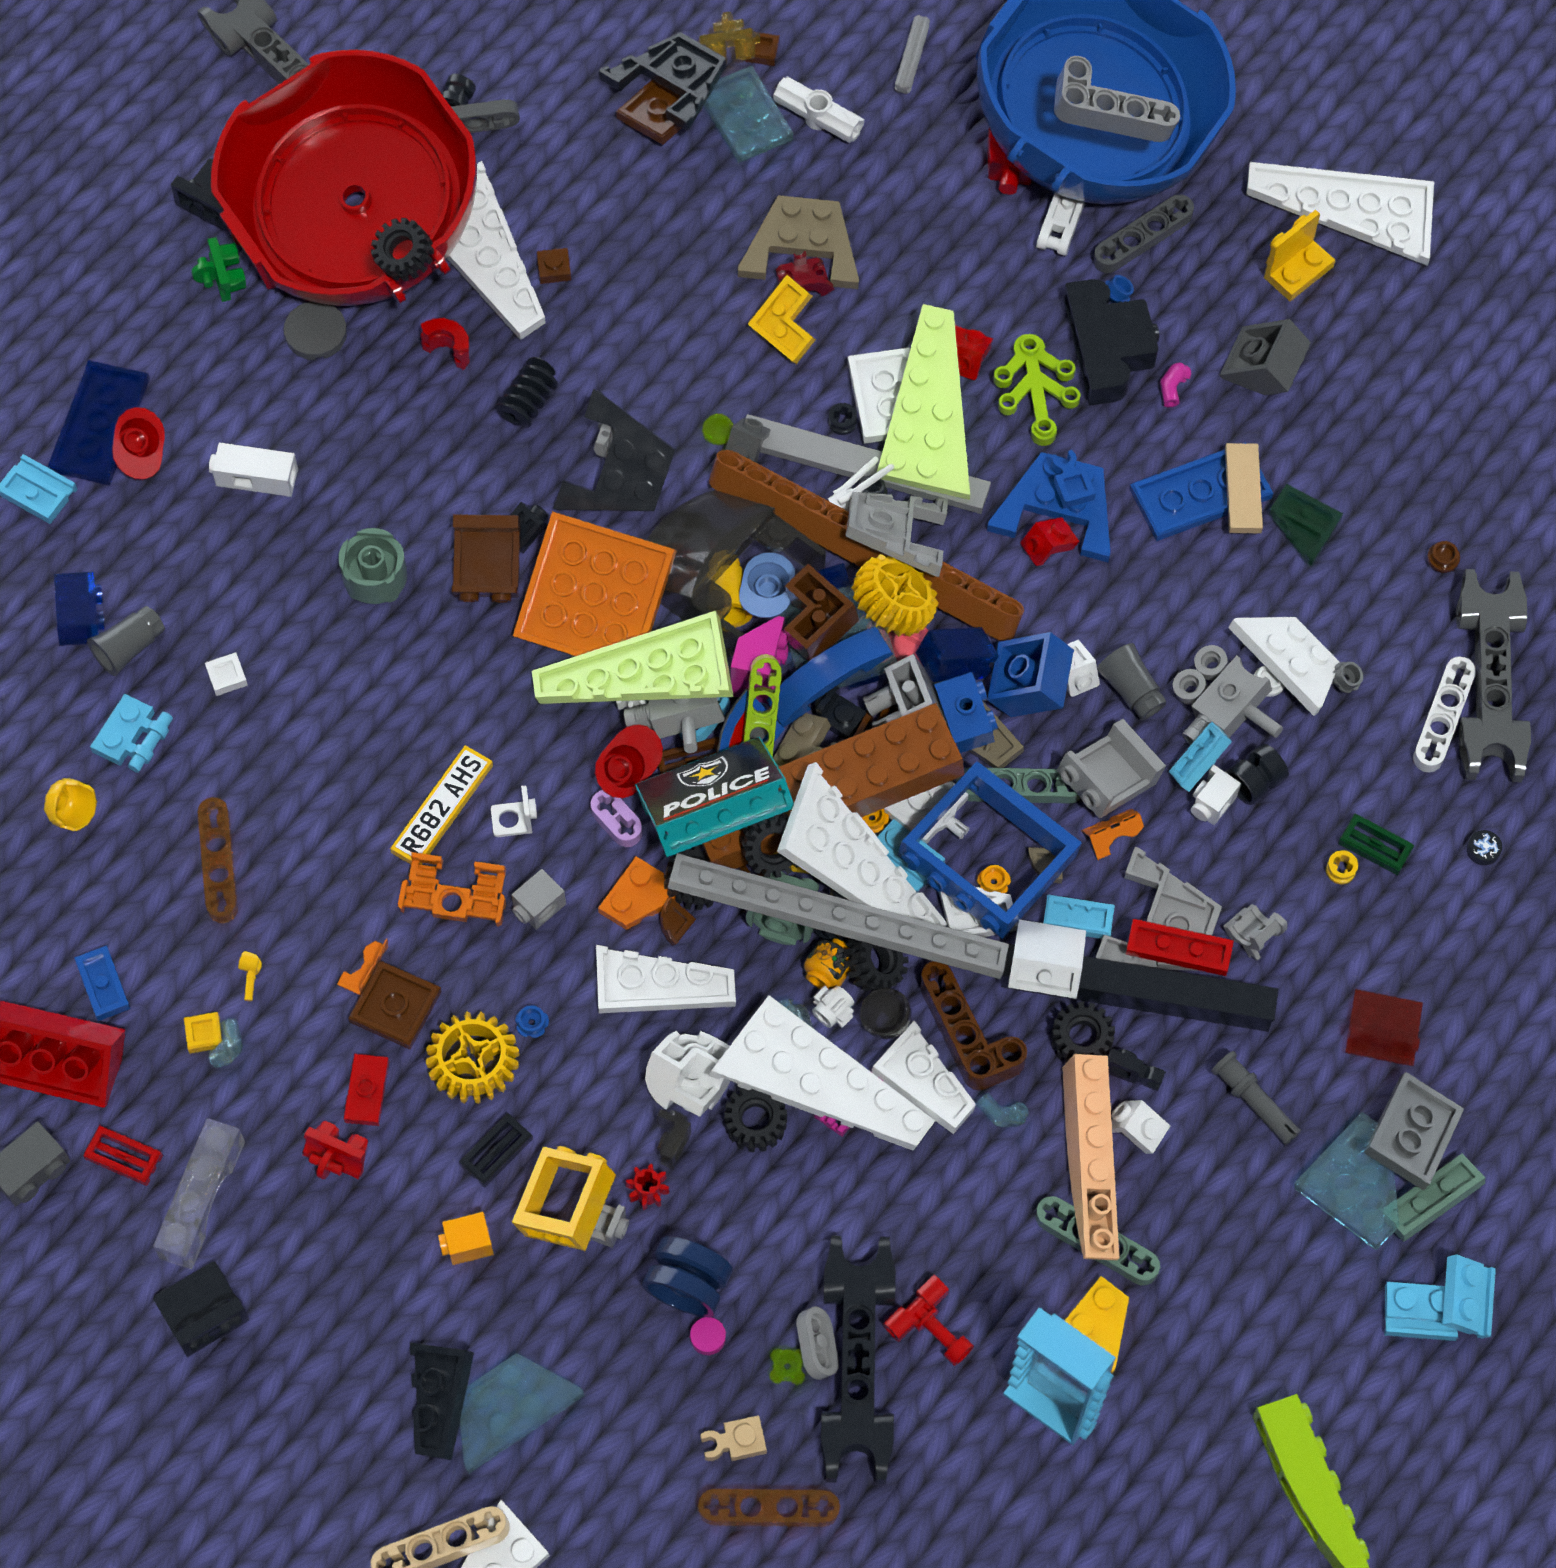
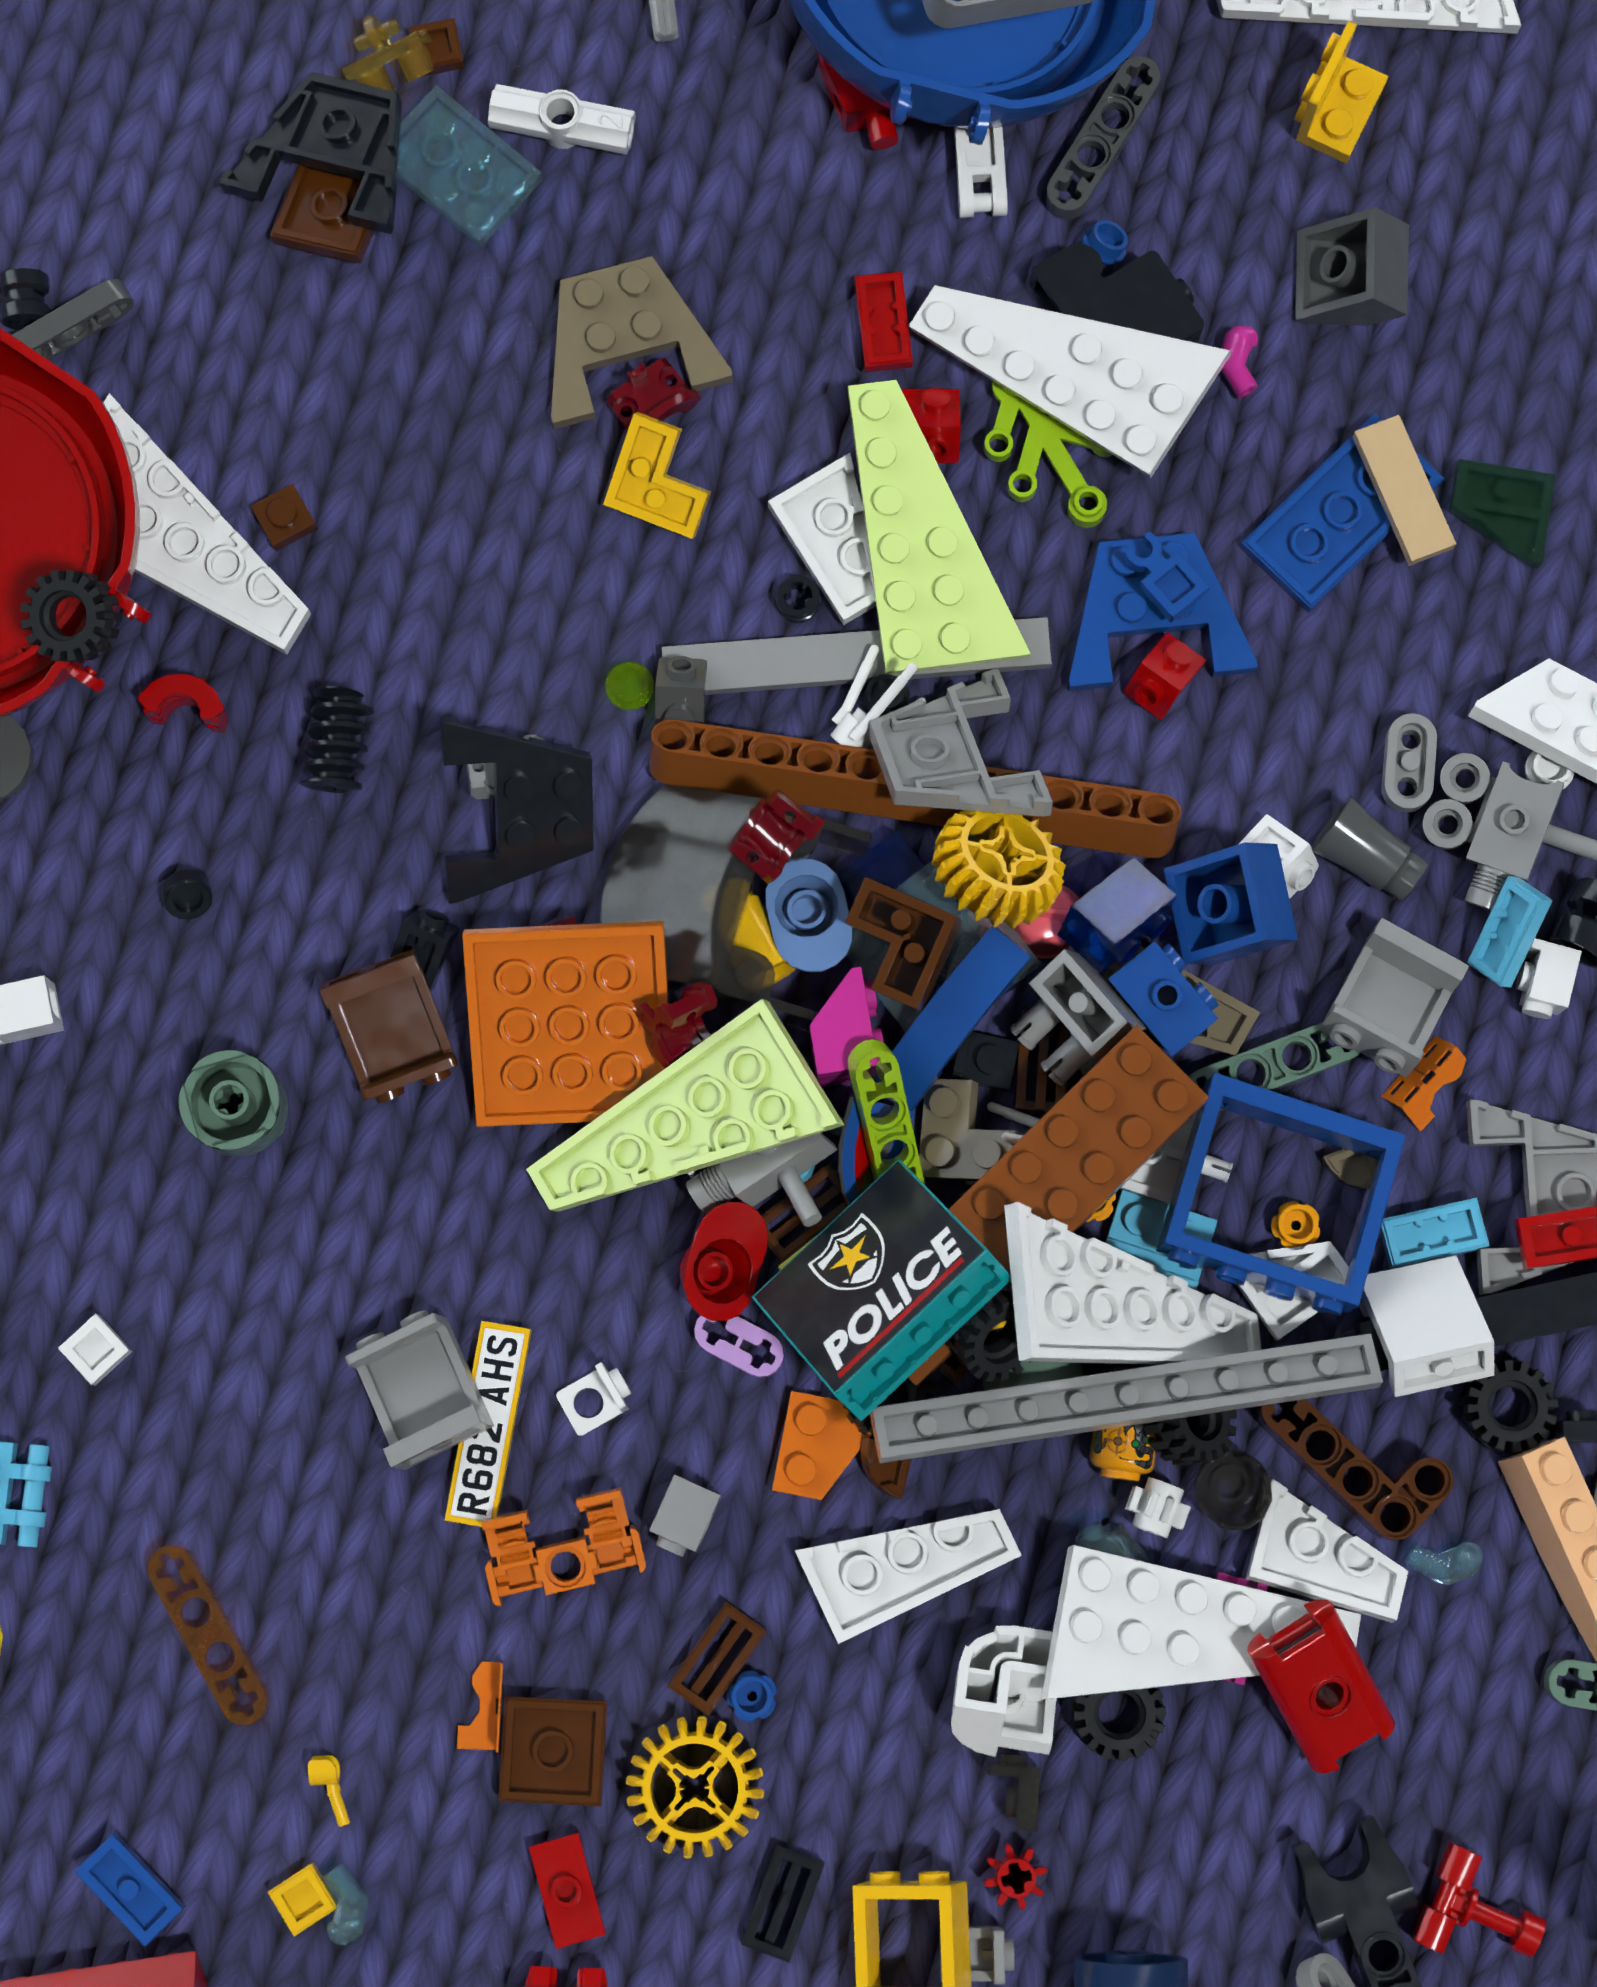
camera: 20 degrees left, 15 degrees up
(399, 445) = (187, 894): none -> black tile
(409, 766) = (420, 1389): none -> light grey panel
(535, 999) = (742, 1622): none -> reddish brown tile
(659, 609) = (679, 1025): none -> dark red piece
(764, 522) = (773, 834): none -> dark red piece
(894, 1168) = (1321, 1686): none -> red piece
(963, 285) = (883, 321): none -> red plate
(1075, 354) = (1097, 378): none -> white wing
(1180, 646) = (1407, 764): none -> light grey plate

